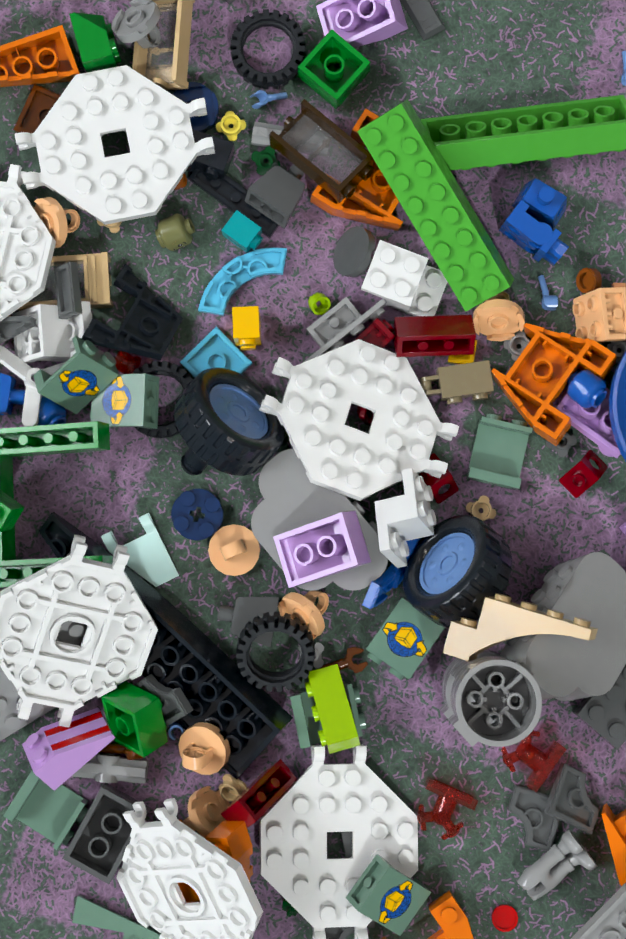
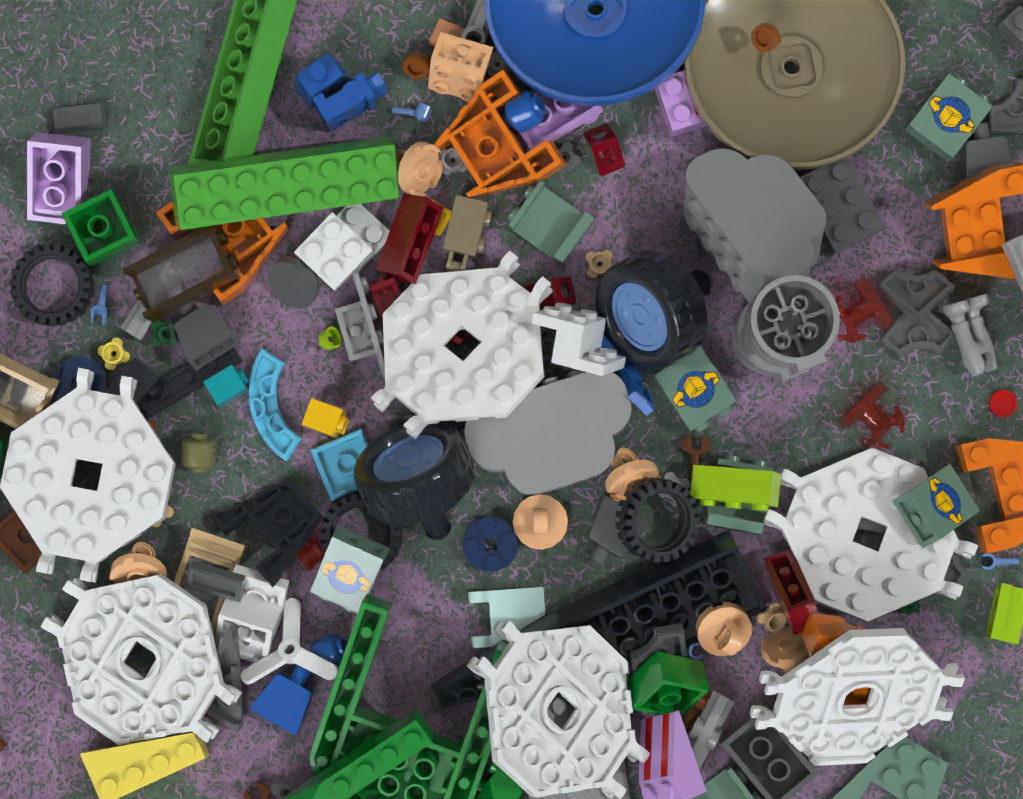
camera: 65 degrees left, 0 degrees up
(79, 378) = (309, 604): sand green panel -> none
(322, 548) = (576, 432): lavender slope -> none
(506, 620) = (719, 281): arch -> none

